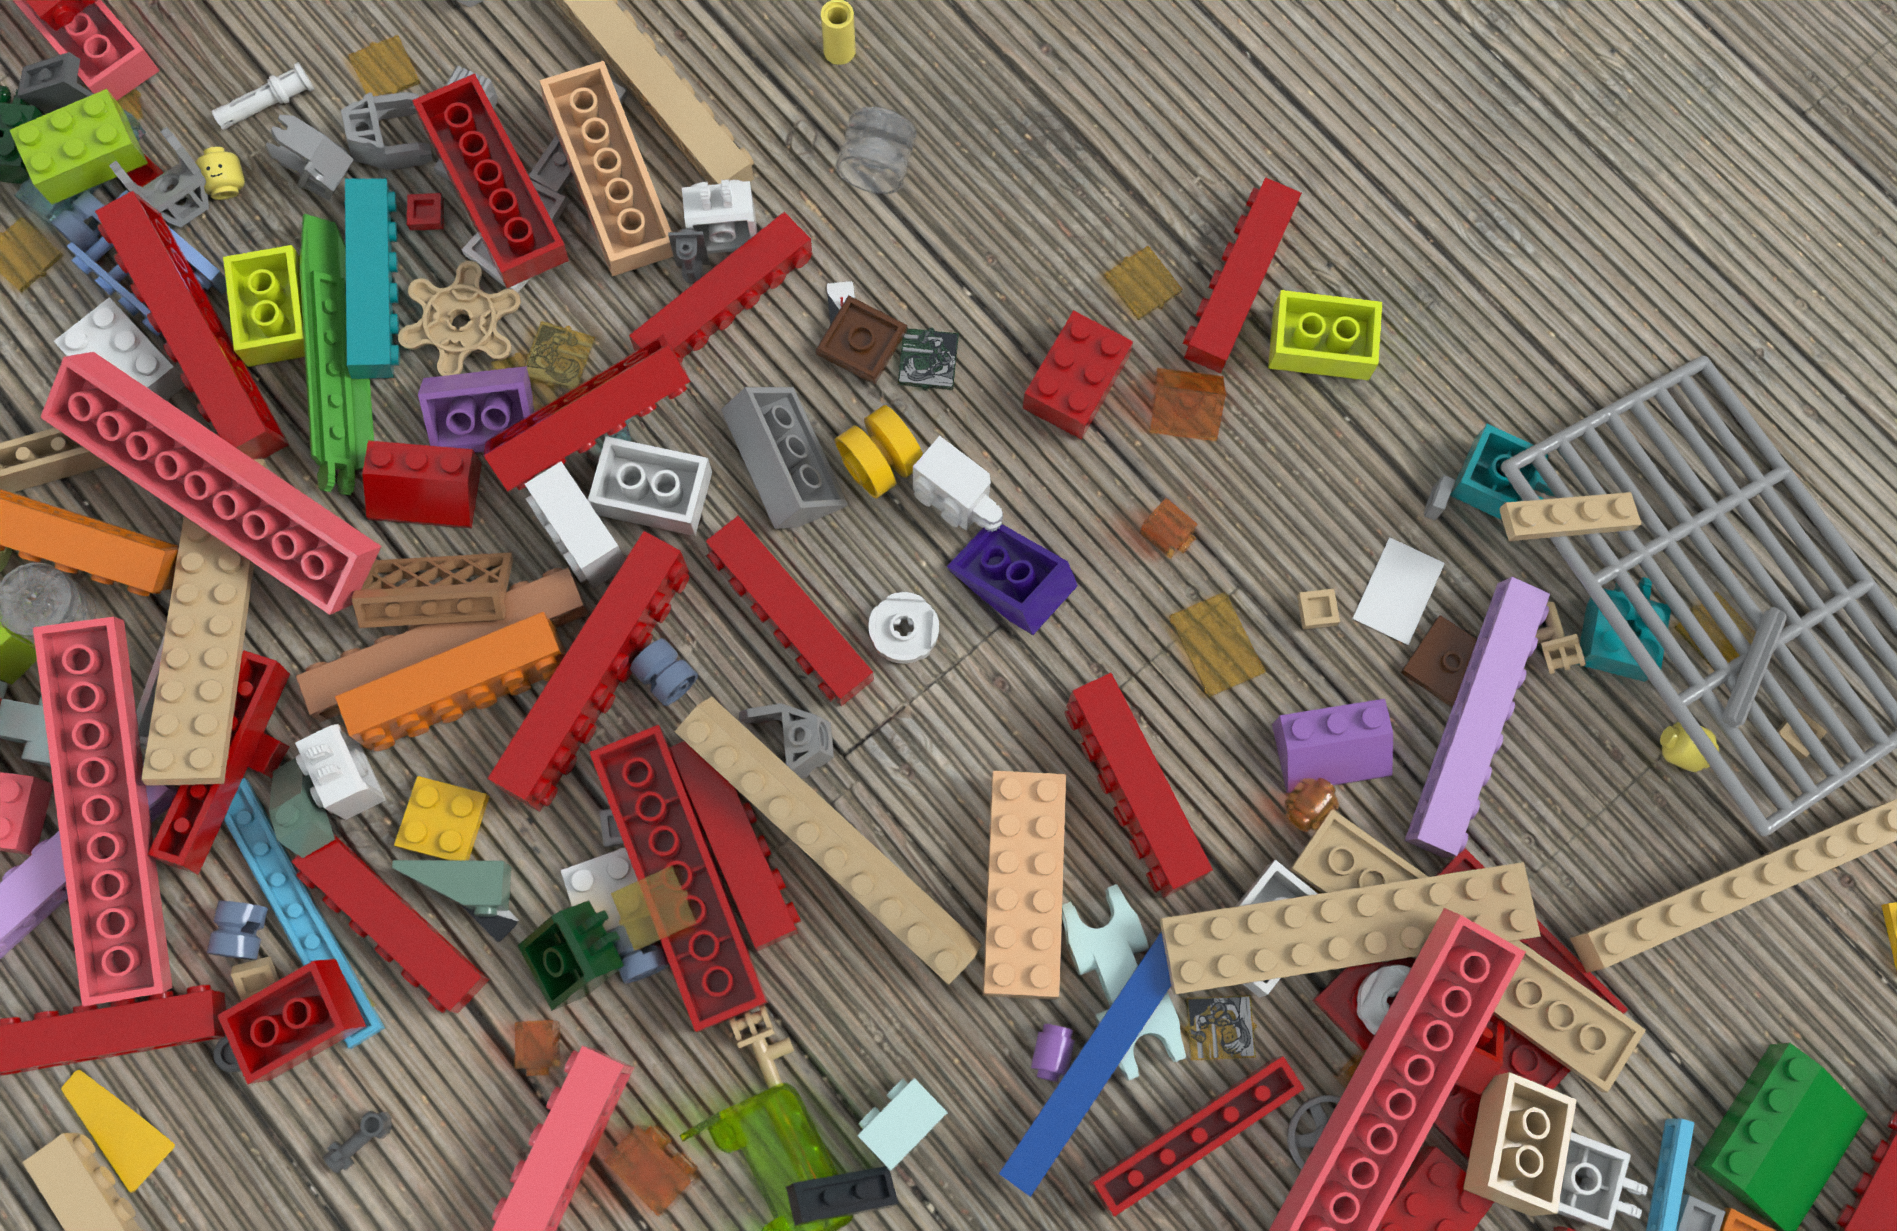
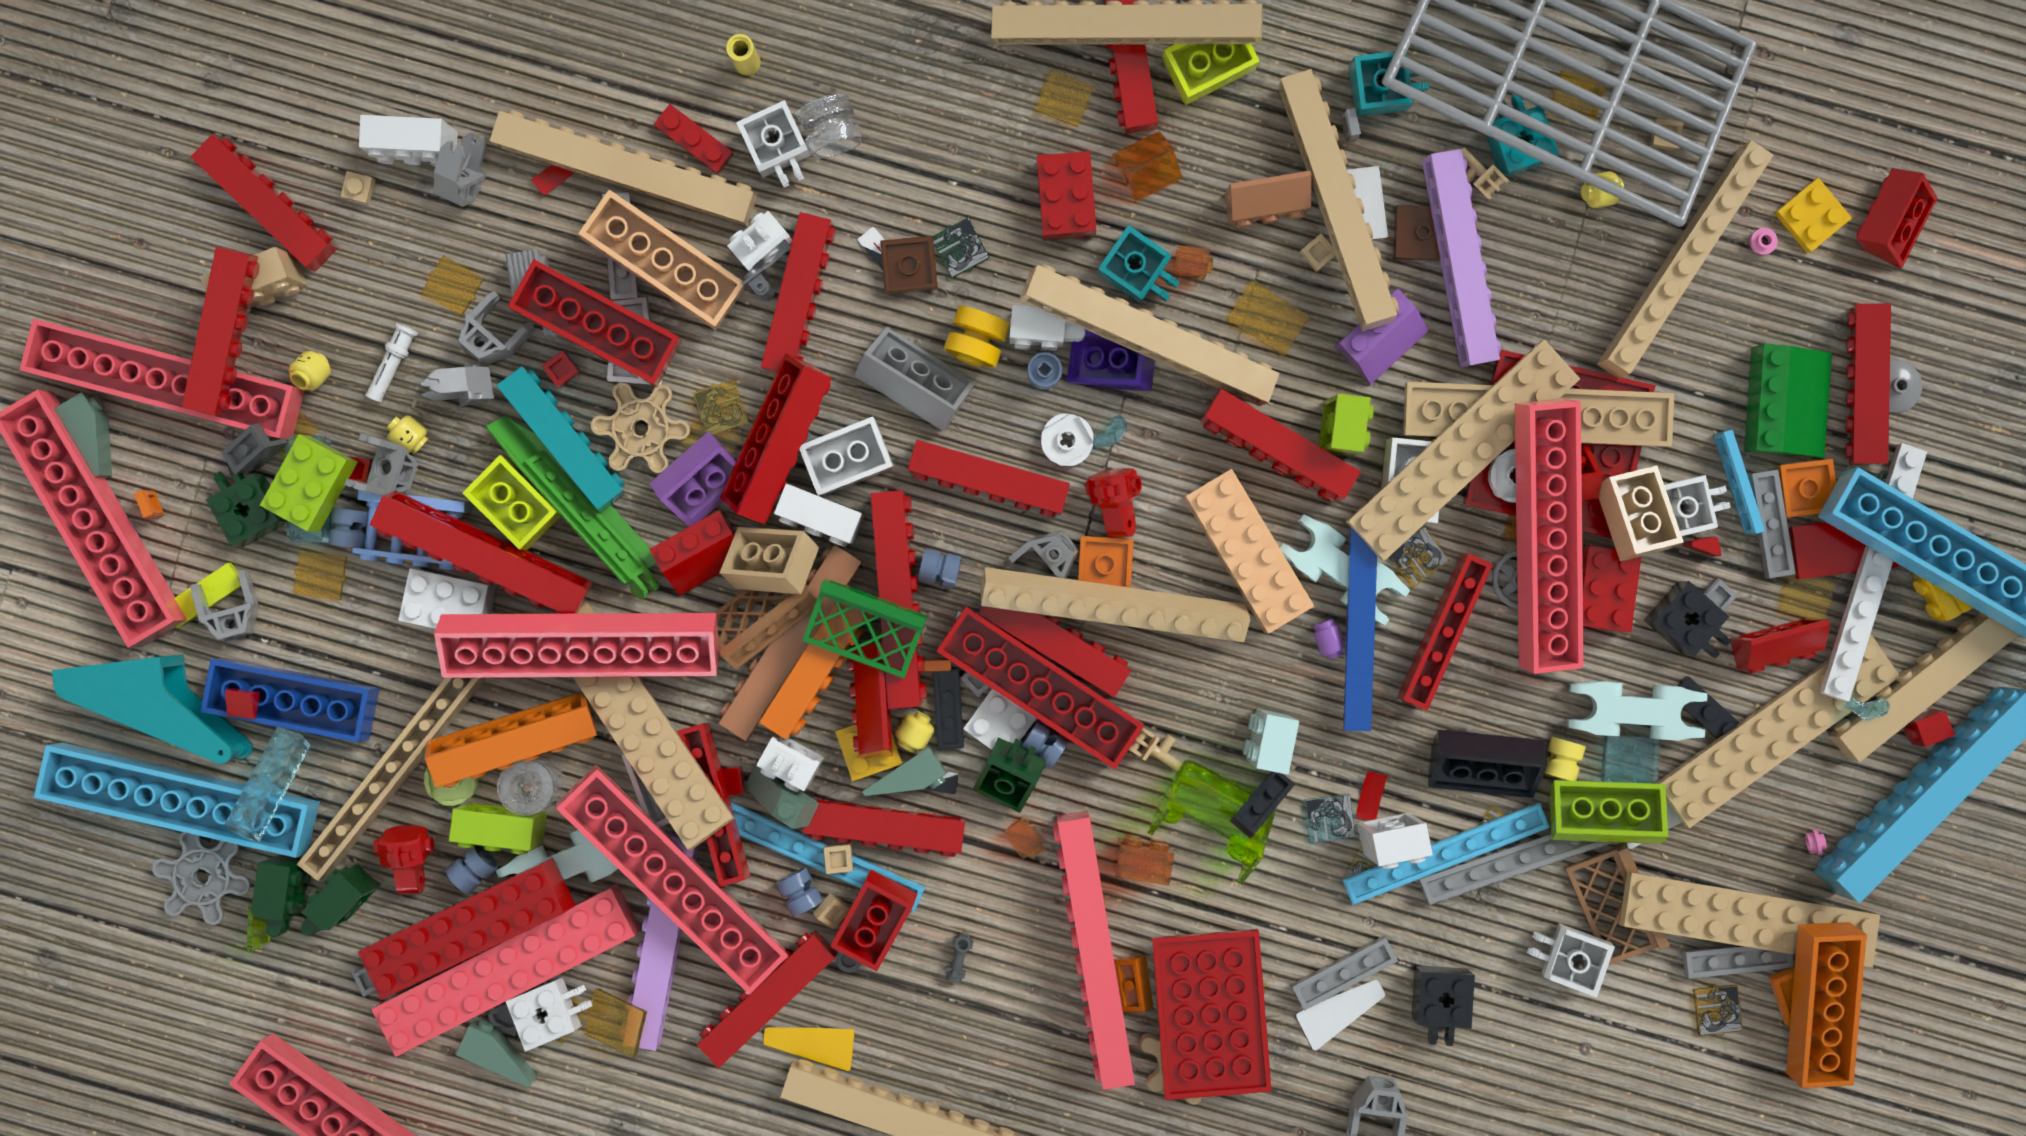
camera: 30 degrees left, 15 degrees up
(176, 52) = (309, 370): none -> light yellow head
(309, 921) = (838, 858): none -> tan plate
(463, 782) = (871, 710): none -> red slope
(484, 533) = (769, 560): none -> tan brick
(503, 835) = (914, 731): none -> light yellow head
(547, 642) = (866, 604): none -> green fence
(560, 33) = (551, 178): none -> red sticker
(561, 838) = (948, 709): none -> black tile
(583, 776) = (937, 664): none -> orange tile
(653, 908) = (1041, 716): clear yellow piece -> none
(731, 84) = (693, 139): none -> red plate
(809, 131) = (774, 156): none -> white hinge
(856, 787) = (1106, 560): none -> orange plate
(913, 721) = (1114, 493): none -> red piece
(929, 536) = (1044, 371): none -> sand blue wheel
(960, 656) = (1114, 433): none -> clear light blue arm
(1069, 564) = (1148, 335): none -> tan brick
(1100, 510) = (1151, 259): none -> teal hinge
(1230, 808) = (1345, 424): none -> lime brick
(1261, 241) = (1127, 23): none -> tan brick
(1299, 513) = (1268, 199): none -> nougat slope
(1310, 803) = (1390, 384): clear orange head -> none
(1373, 566) = (1337, 200): none -> tan brick
(1569, 516) = (1447, 91): tan plate -> none
(1754, 667) = (1617, 115): light grey axle -> none
(1842, 929) = (1756, 244): none -> bright pink plate

